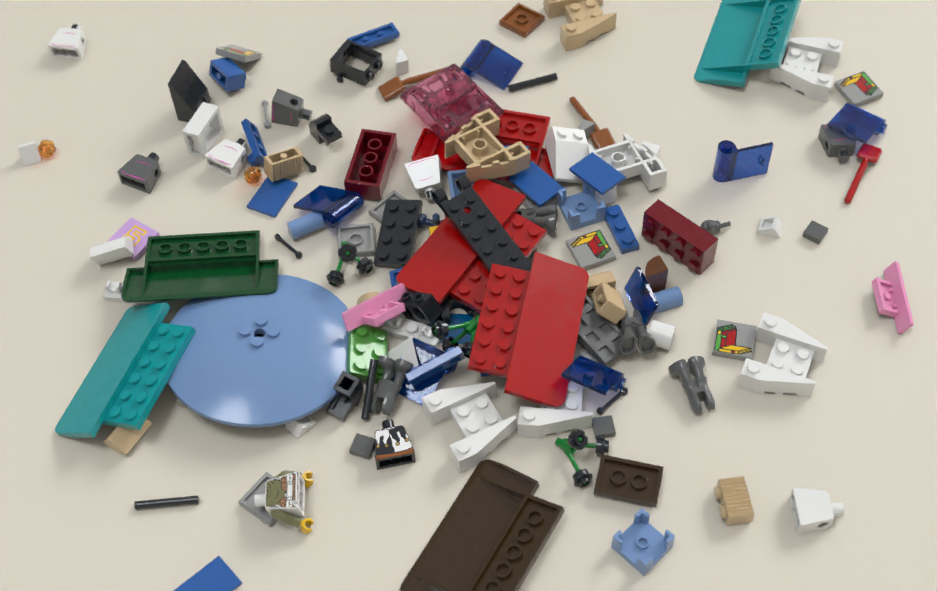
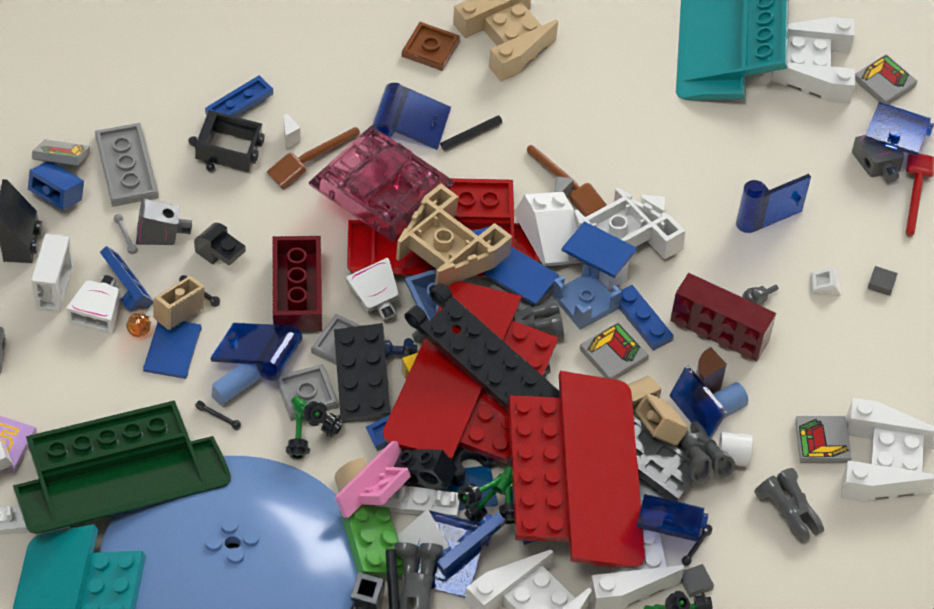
camera: 20 degrees left, 0 degrees up
(282, 68) = (126, 164): none -> light grey tile

